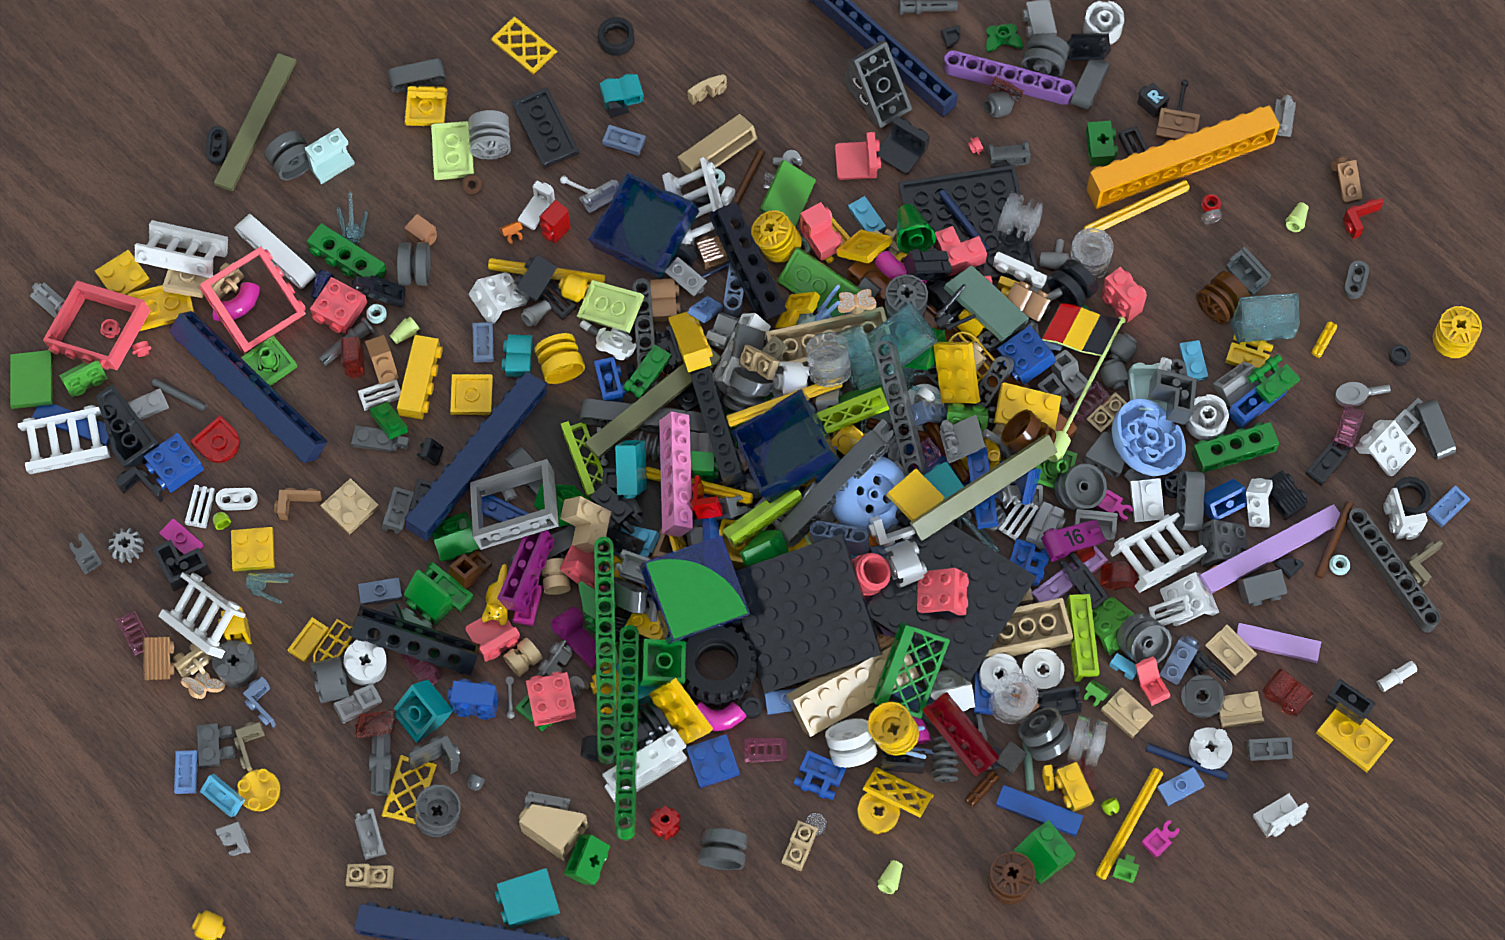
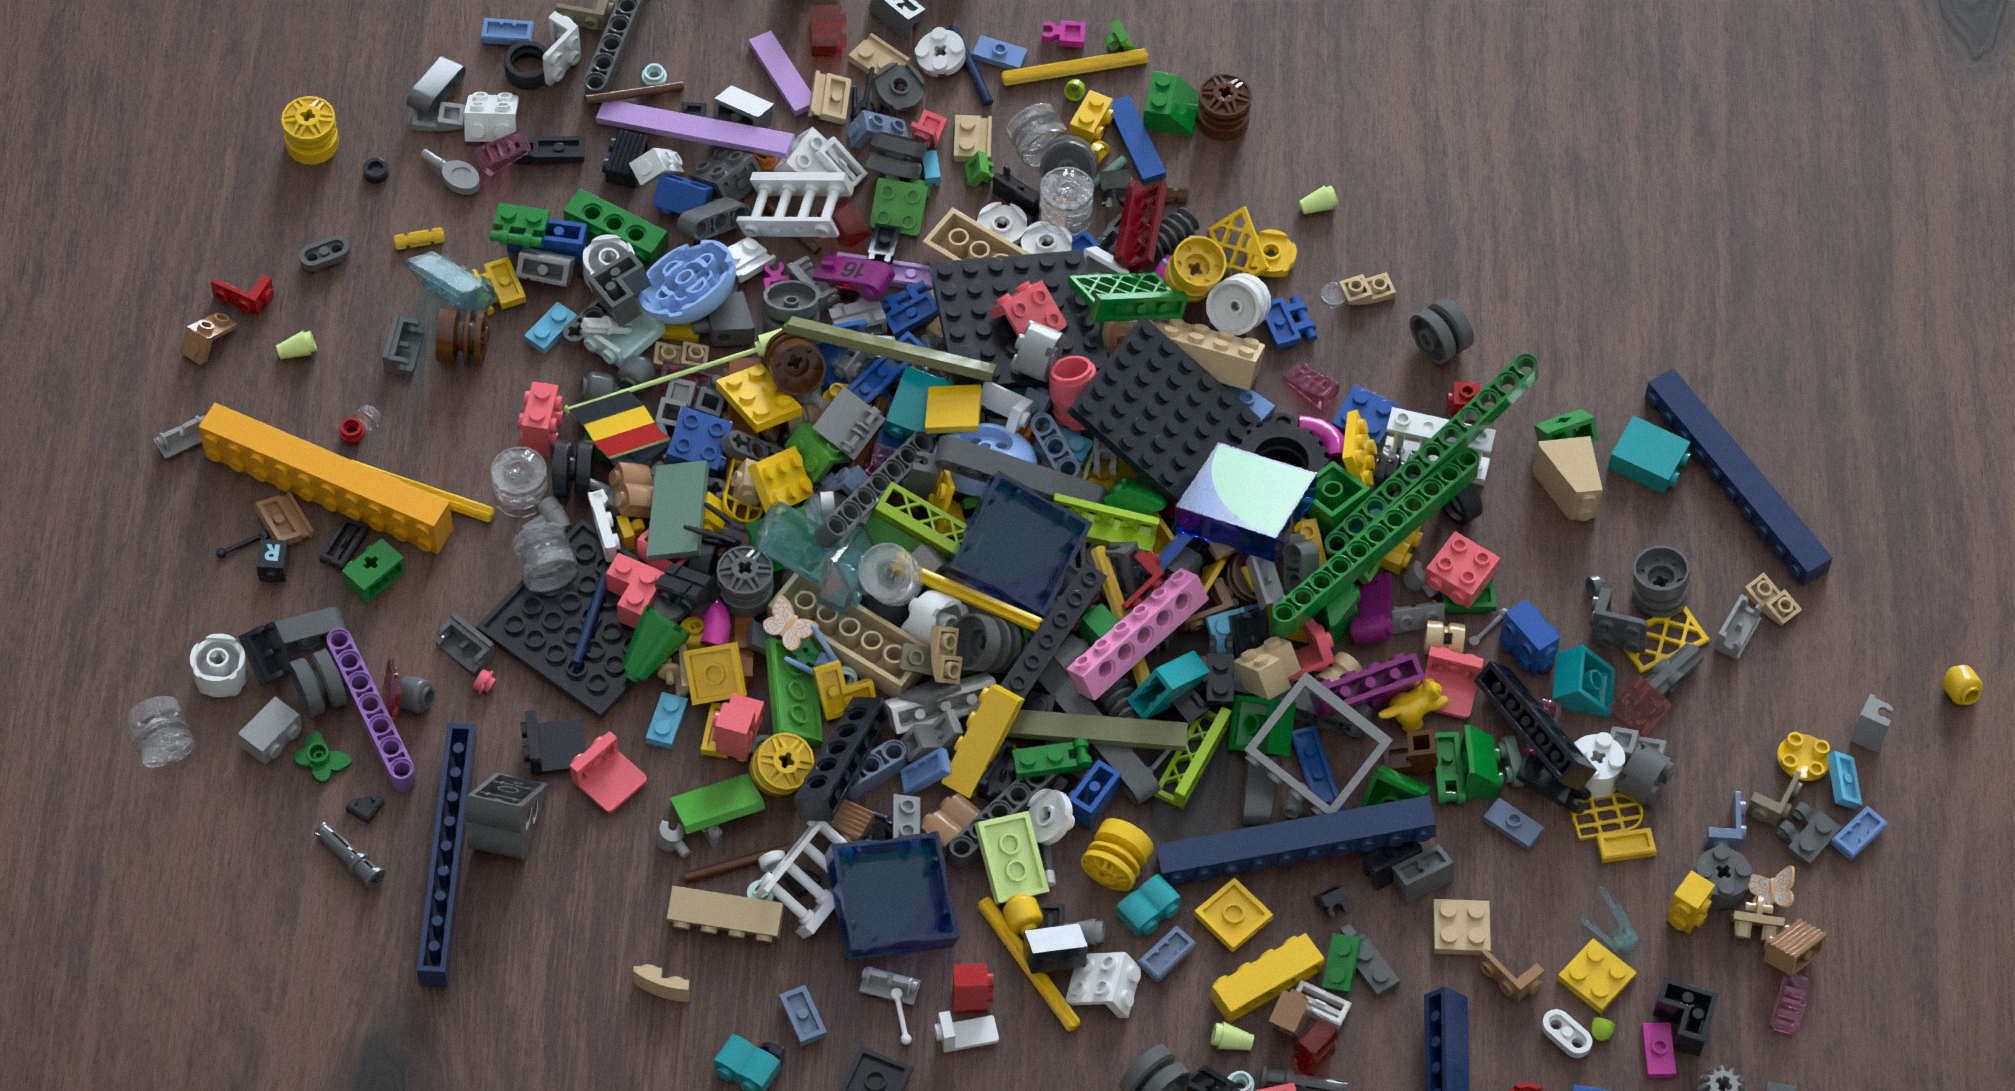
camera: 135 degrees left, 10 degrees down
(186, 626) = (1740, 928): white fence -> none
(203, 490) = (1626, 1052): white tile -> none
(510, 229) = (1016, 1034): orange tile -> none
(546, 800) = (1551, 511): light grey hinge -> none
(1083, 643) = (955, 194): lime fence -> none

